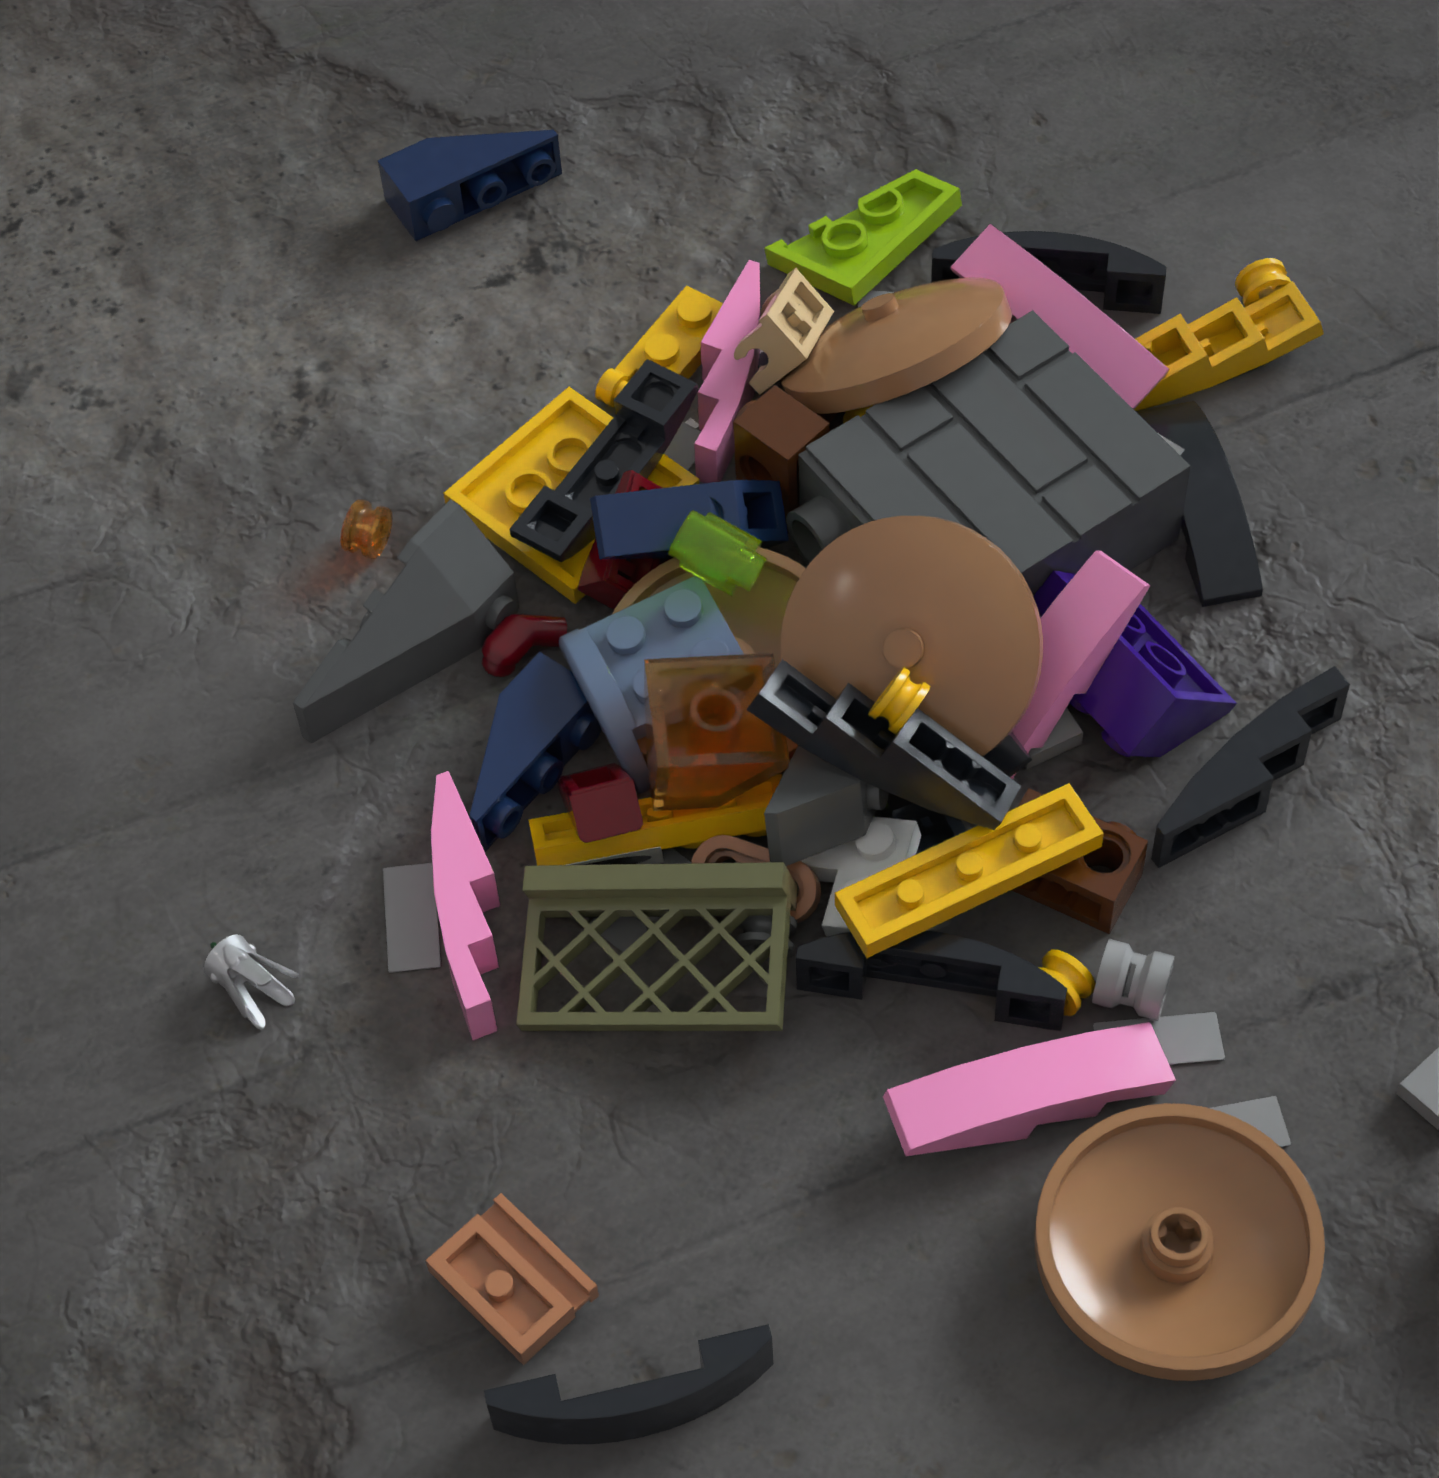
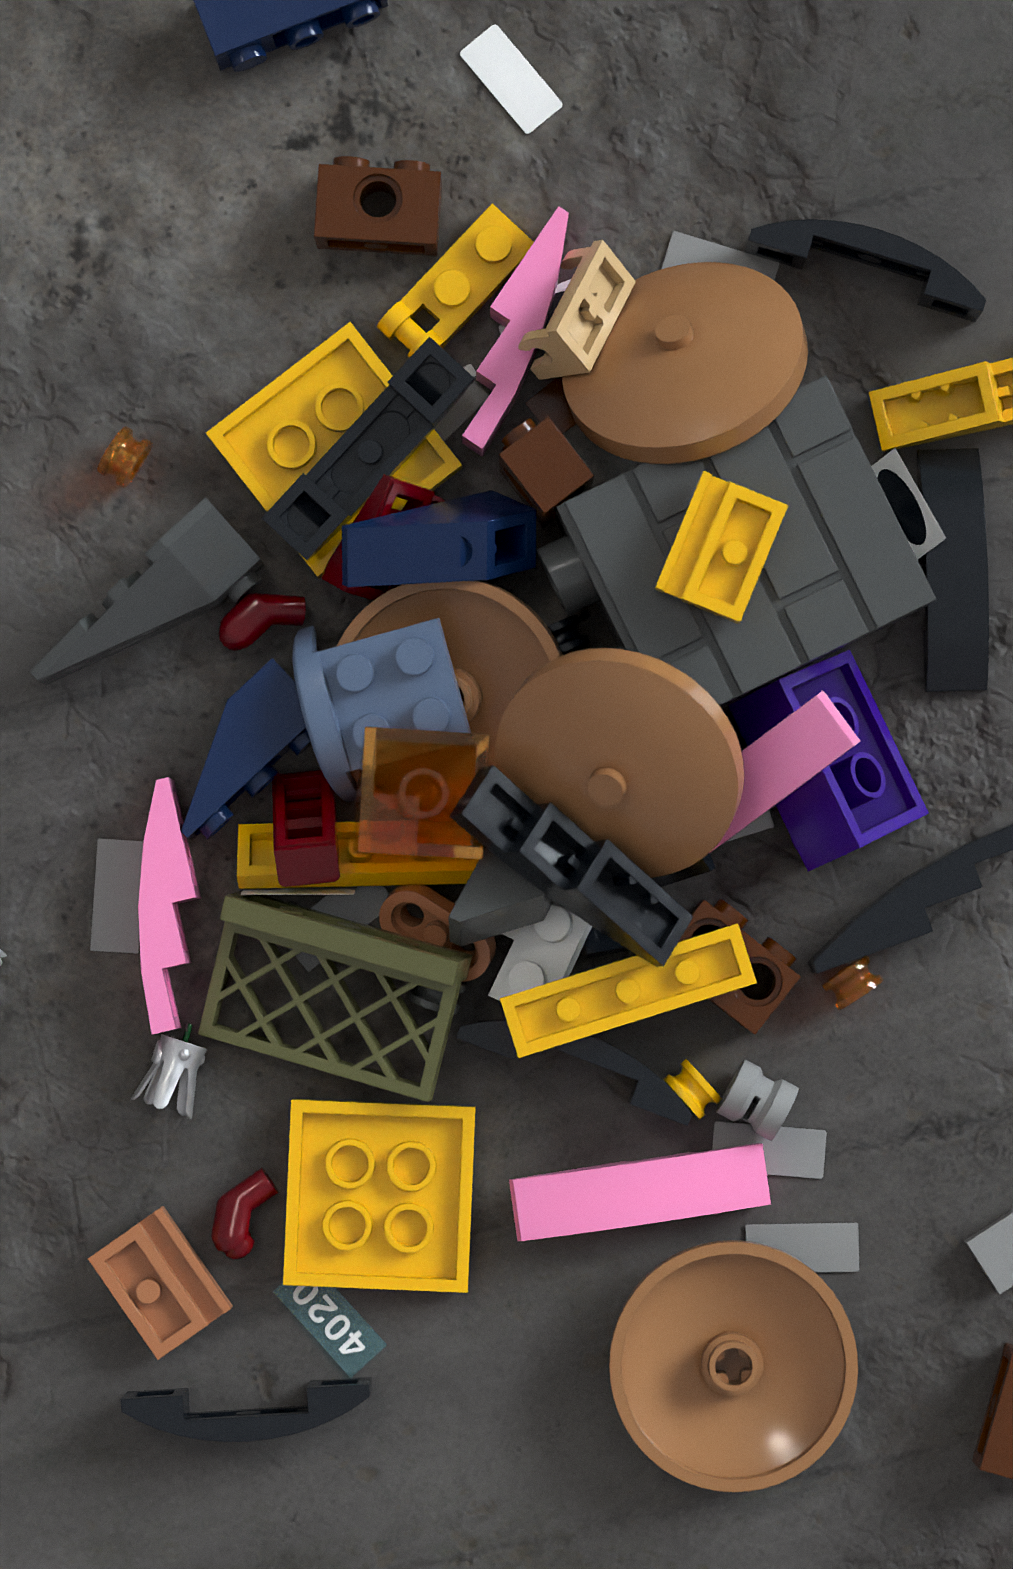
camera: 10 degrees right, 30 degrees up
(495, 1044) = (172, 1061): none -> flat silver piece
(580, 303) = (406, 230): none -> reddish brown brick
(585, 1194) = (233, 1214): none -> dark red arm
(685, 206) = (511, 79): none -> white sticker
(708, 1291) = (333, 1324): none -> clear light blue sticker
(718, 552) = (457, 608): clear neon green brick -> none
(743, 1147) = (379, 1195): none -> yellow plate
(868, 243) = (687, 180): lime wing -> none
(899, 700) = (592, 837): yellow bush -> none
(968, 446) = (721, 547): none -> yellow plate
(1076, 320) = (860, 346): bright pink slope -> none
(1203, 855) = (852, 982): none -> clear orange bush

